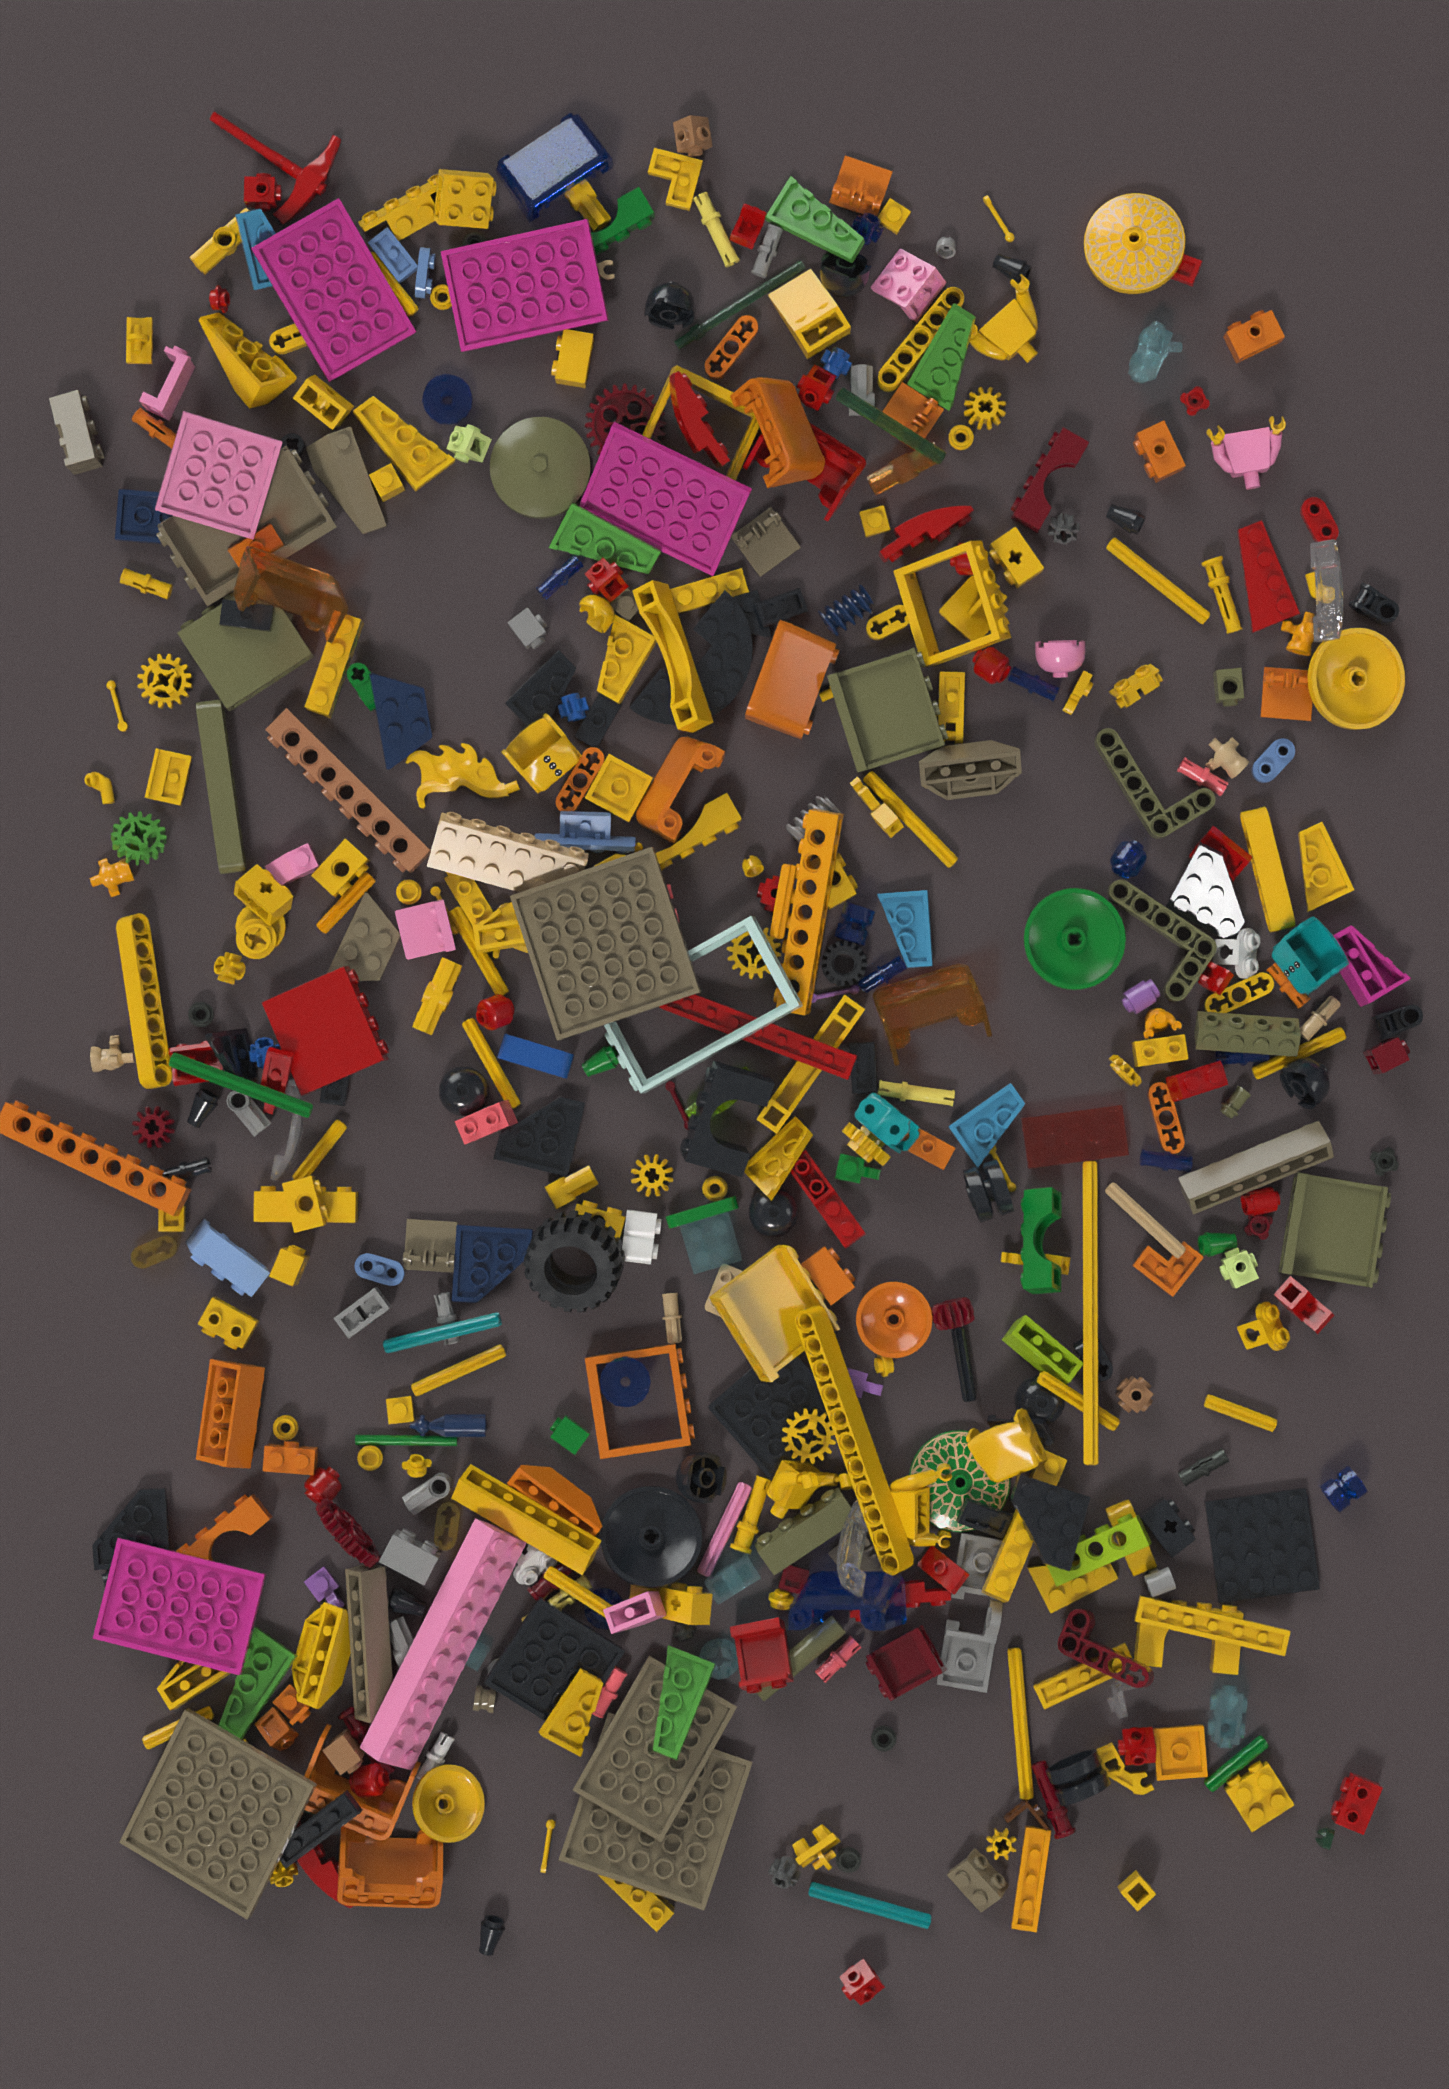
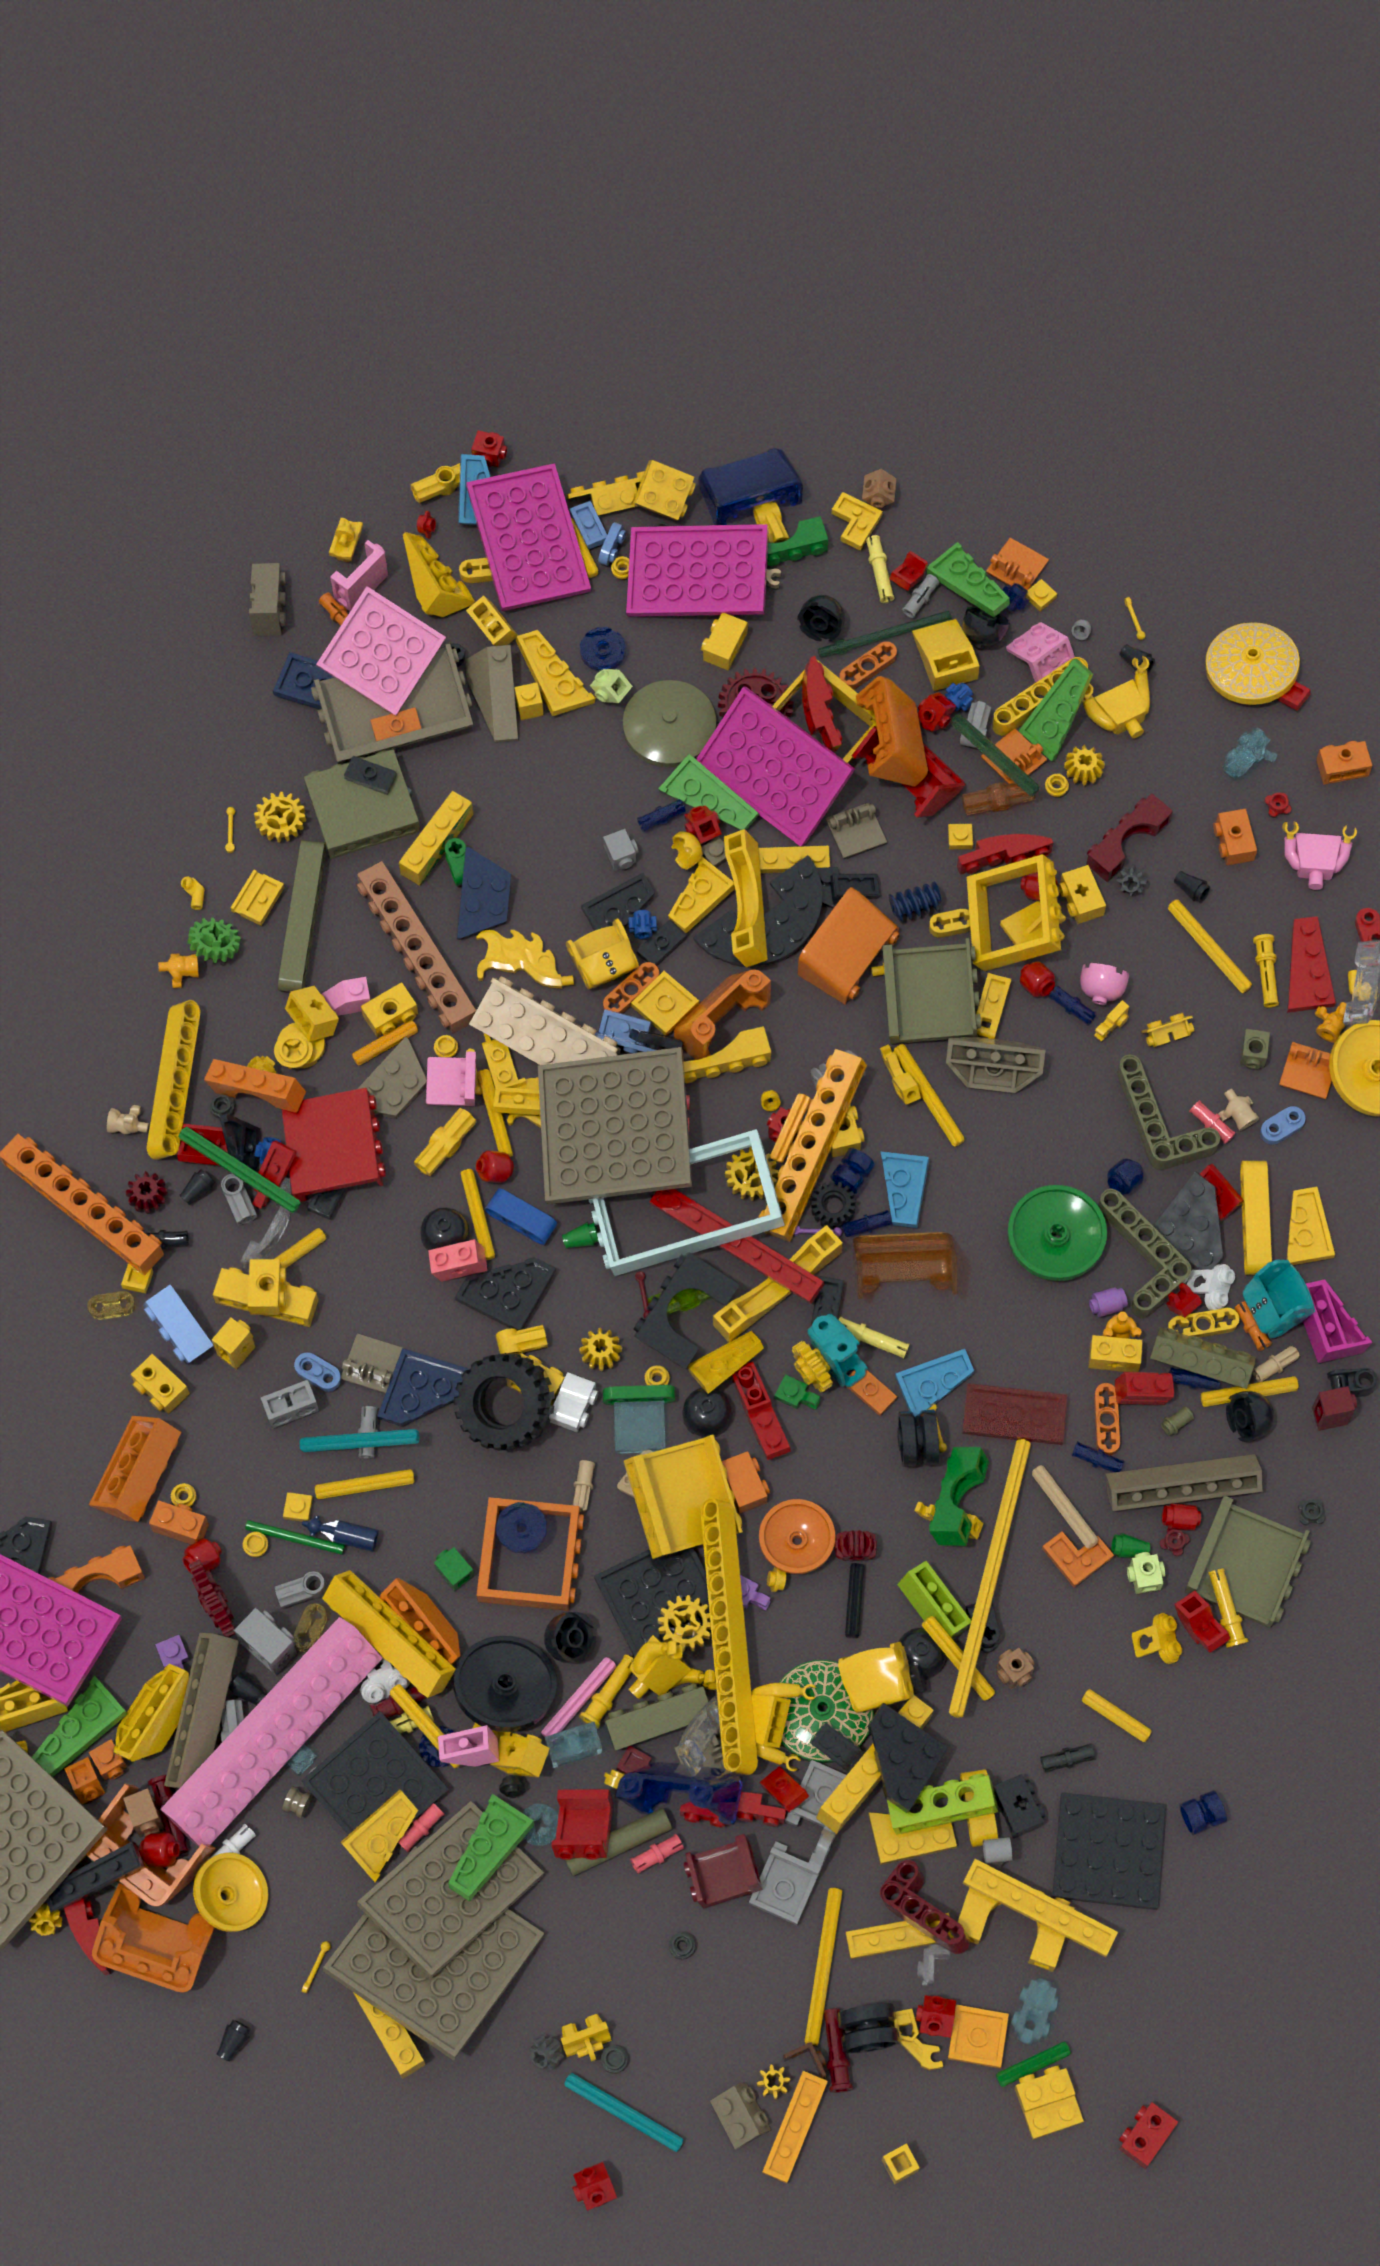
camera: 15 degrees right, 20 degrees down
(146, 583) = (289, 735): yellow pin -> none
(229, 990) = (277, 1089): none -> orange arch
(291, 588) = (414, 762): clear orange windscreen -> none
(309, 180) = (532, 452): red piece -> none
(416, 1465) = (297, 1561): yellow plate -> none
(620, 834) = (655, 1040): none -> black plate
(1124, 1071) = (1076, 1362): yellow gear -> none
(1326, 1841) = (1109, 2166): clear green hinge -> none
(1329, 1293) = (1230, 1620): none -> yellow pin

